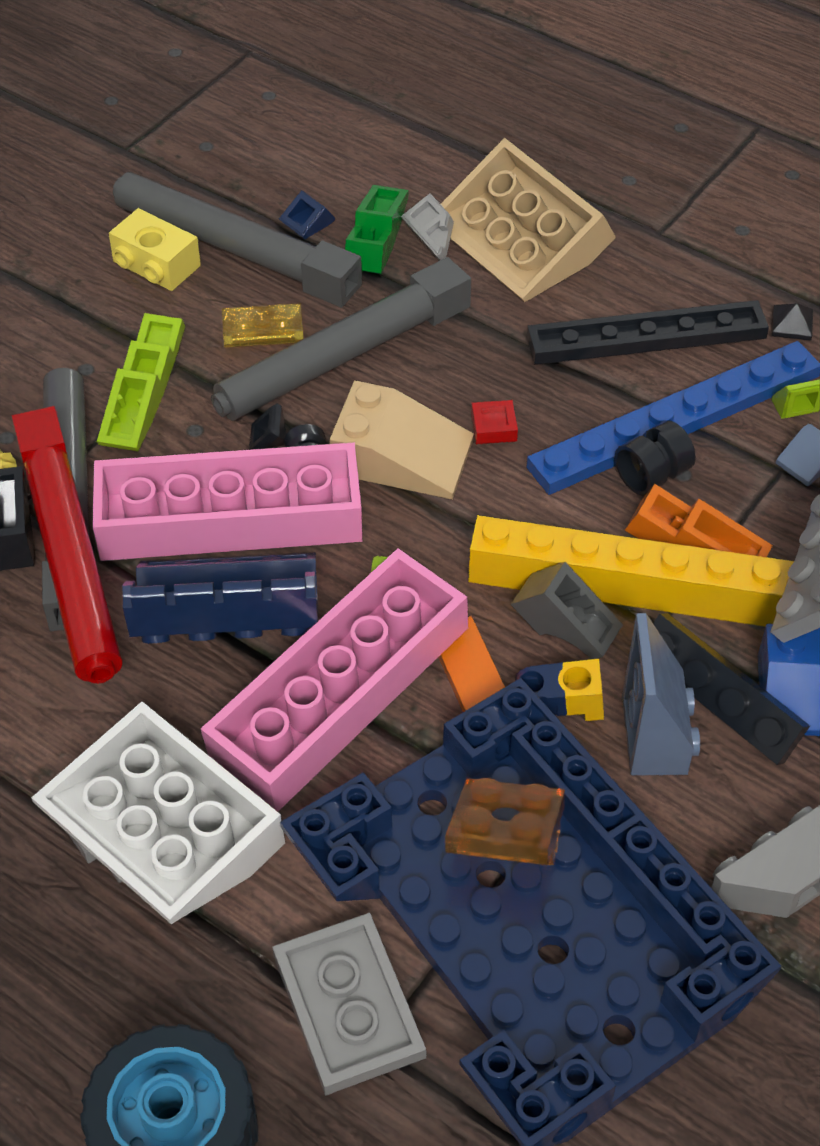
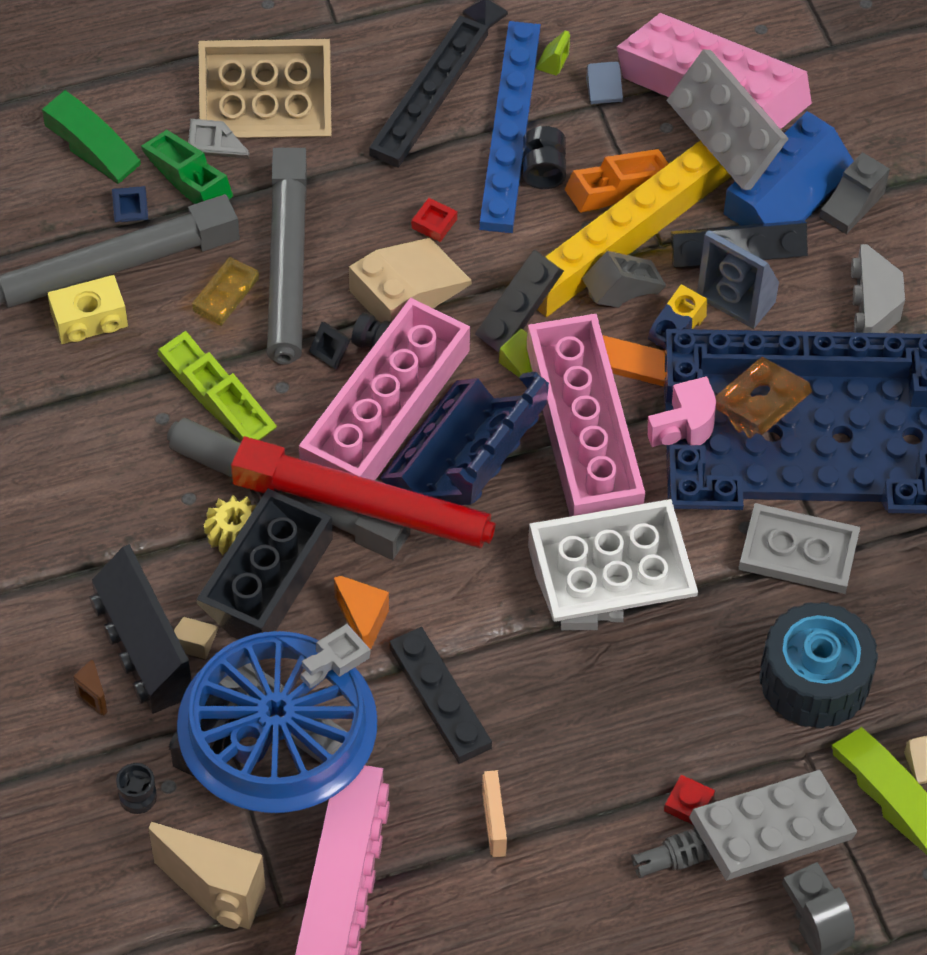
camera: 55 degrees left, 5 degrees up
(347, 149) = (90, 137): none -> green slope
(419, 775) = (691, 417): none -> bright pink brick
(447, 531) = (519, 300): none -> black plate

